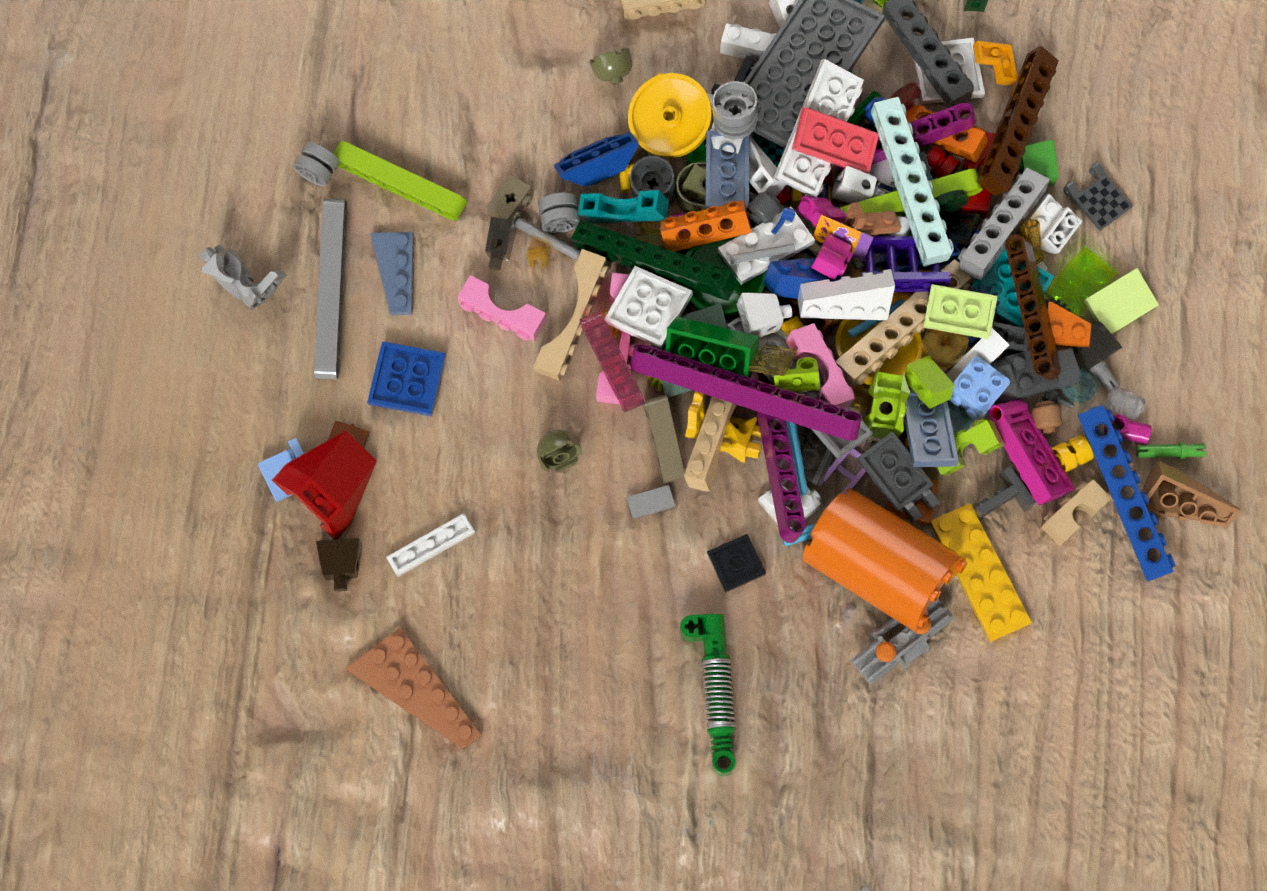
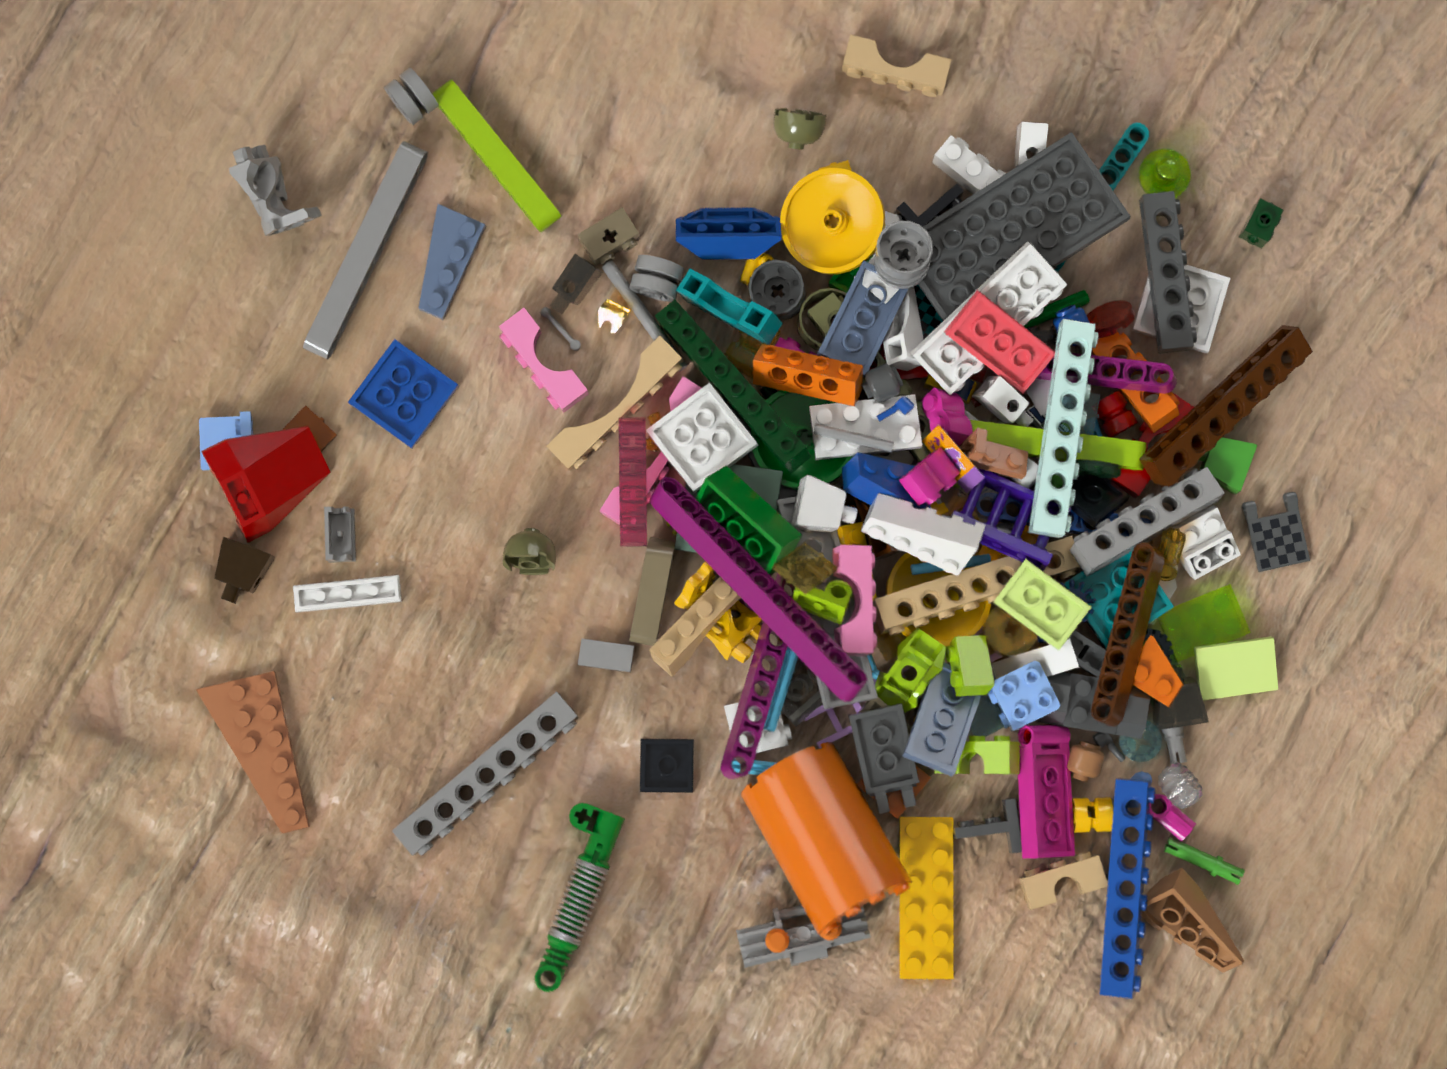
camera: 20 degrees right, 10 degrees up
(405, 502) = (340, 534): none -> light grey hinge
(519, 289) = (574, 344): none -> light grey hinge
(629, 557) = (408, 830): none -> light grey brick
(1000, 57) = (1249, 318): light orange plate -> none

